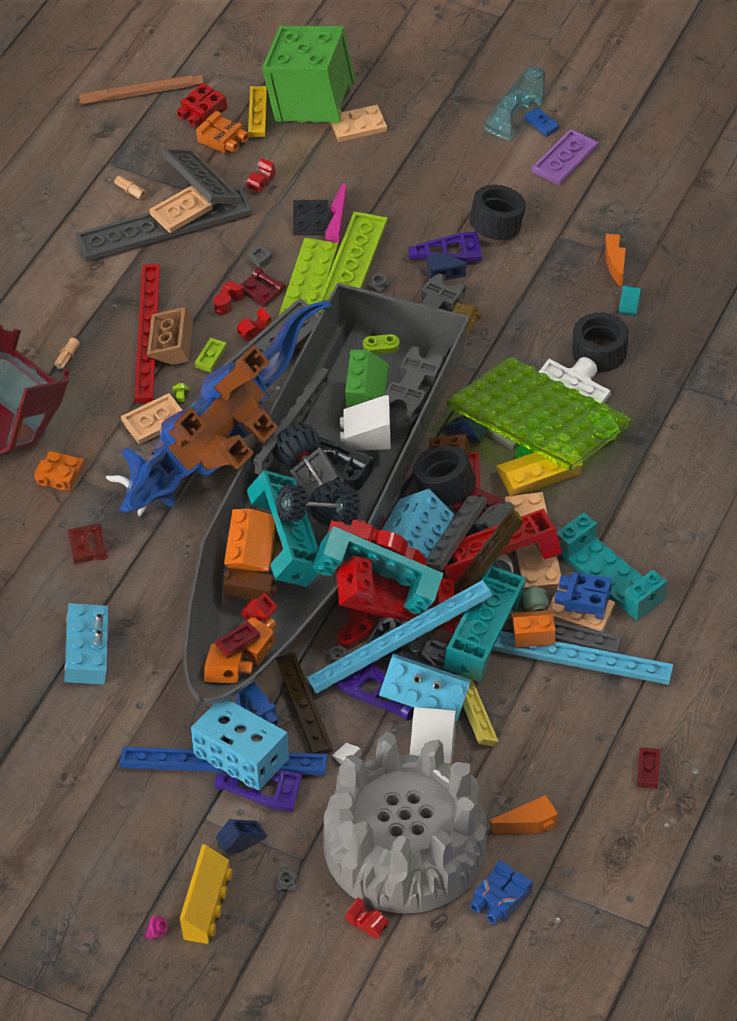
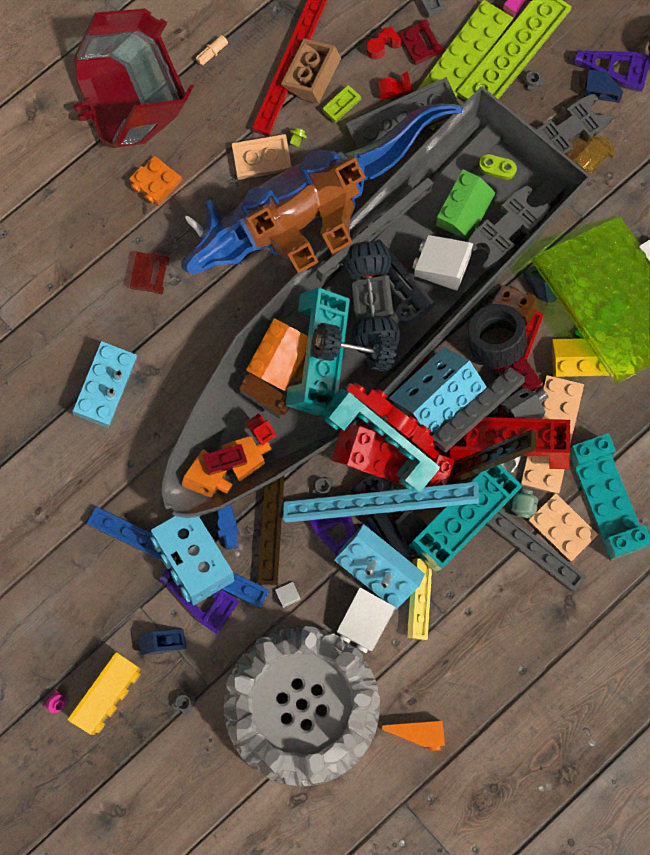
camera: 25 degrees right, 25 degrees up
(353, 632) = (347, 472): red plate -> none
(371, 922) = (235, 774): red leg -> none
(501, 893) = (354, 800): blue hips -> none
(533, 628) = (509, 535): orange slope -> none
(584, 594) = (572, 521): blue hips -> none
(590, 659) = (545, 585): medium azure plate -> none
(648, 768) = (549, 725): dark red plate -> none

